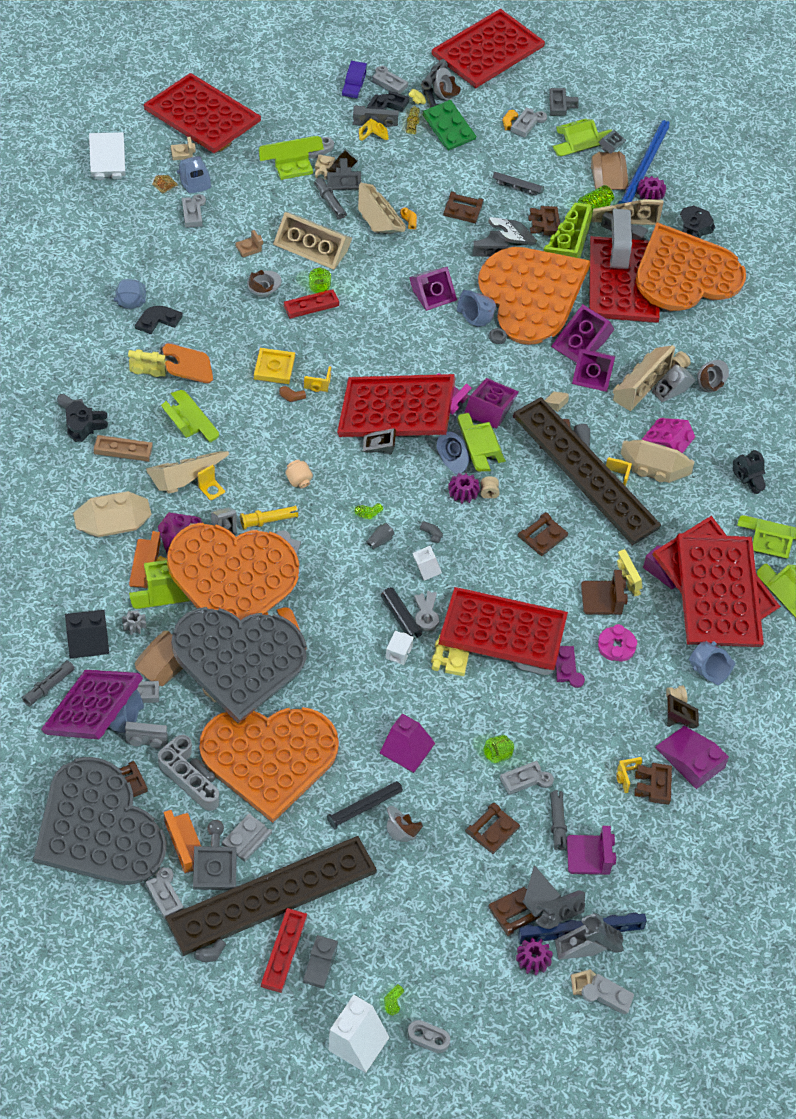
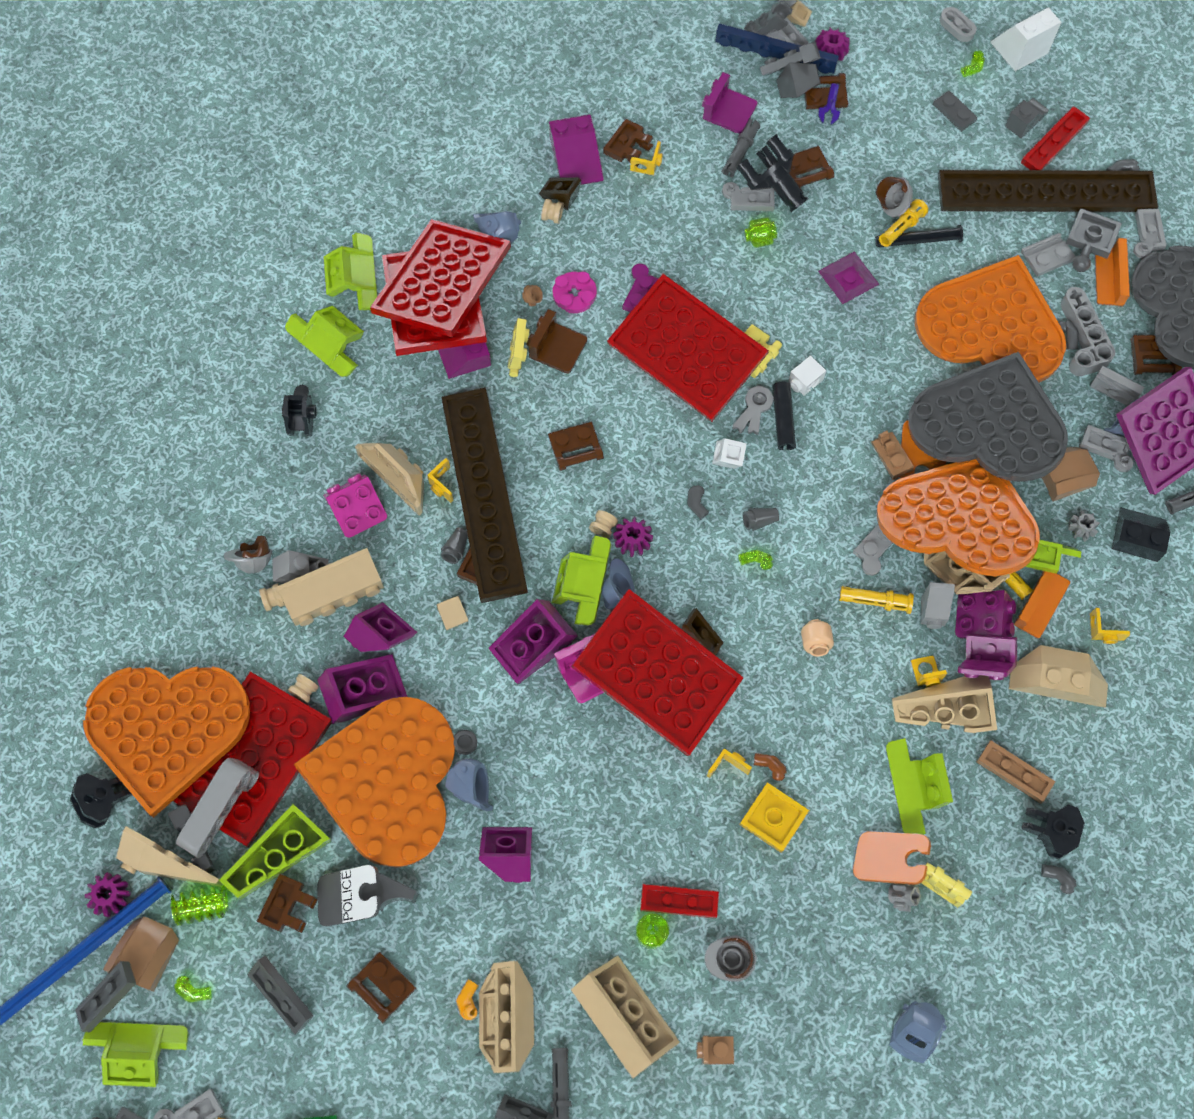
camera: 150 degrees left, 15 degrees up
(88, 553) = (1107, 636): none -> yellow bracket
(155, 315) = (894, 979): black plate -> none
(171, 492) = (989, 656): none -> magenta bracket
(304, 619) = (892, 455): none -> medium nougat plate
(380, 811) = (890, 235): none -> yellow pin
(389, 943) = (955, 111): none -> dark grey plate
(502, 890) = (830, 105): none -> dark purple bar
(514, 793) = (776, 175): none -> black wheel
(569, 168) = (189, 992): none -> clear neon green arm
(620, 322) = (303, 688): none -> tan wheel
(647, 625) = (532, 294): none -> medium nougat plate

